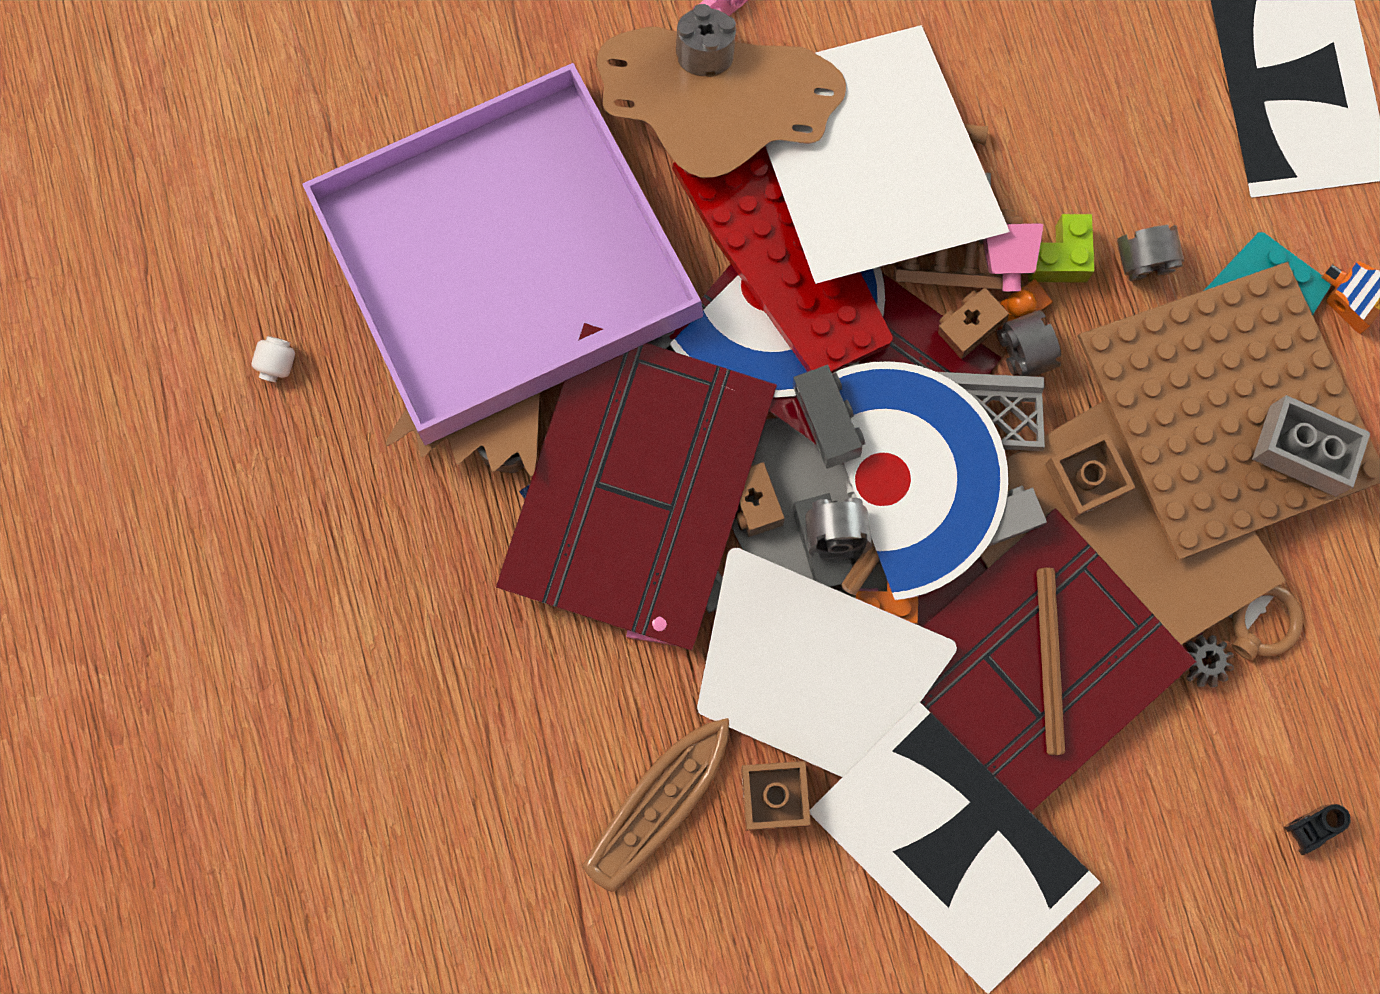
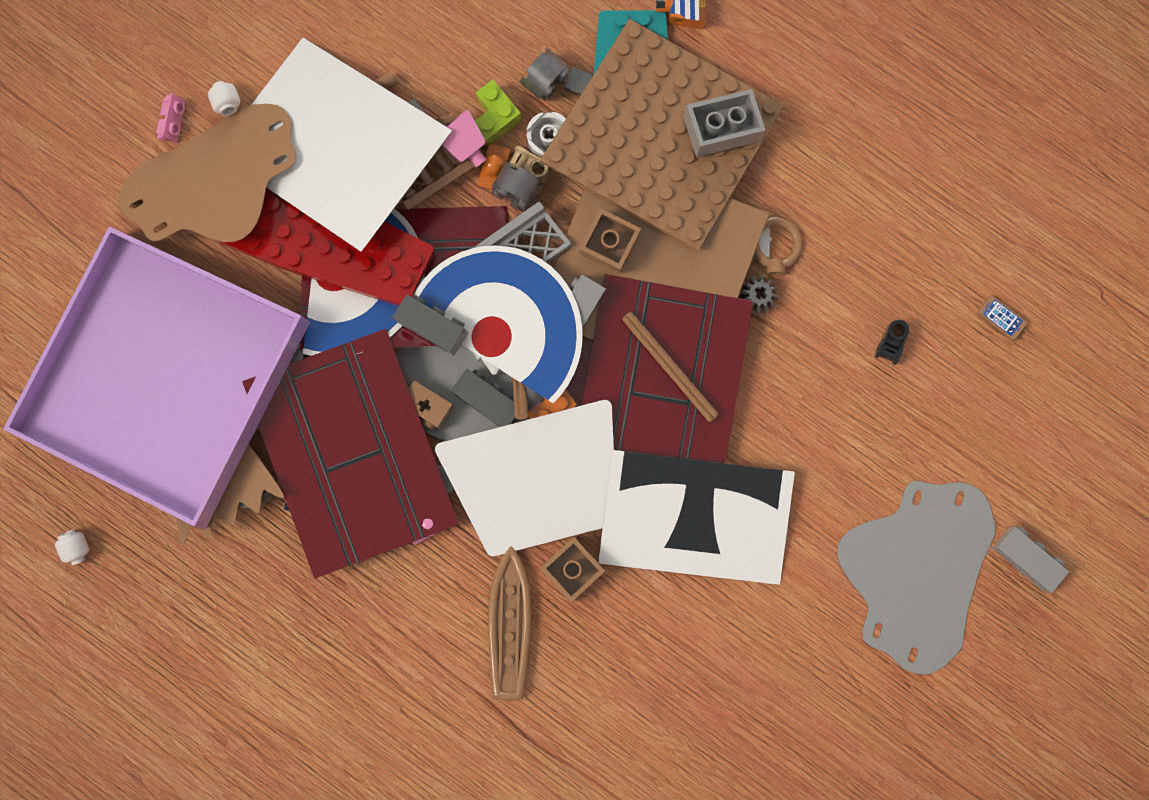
camera: 30 degrees left, 5 degrees up
(705, 40) = (179, 149): flat silver brick -> none
(792, 24) = (224, 98): none -> white head
(838, 529) = (487, 387): flat silver brick -> none
(964, 337) = (481, 189): medium nougat brick -> none
(1065, 331) = (528, 162): none -> tan piece
(1104, 302) = (539, 127): none -> white brick
(1179, 285) = (577, 81): none -> flat silver tile

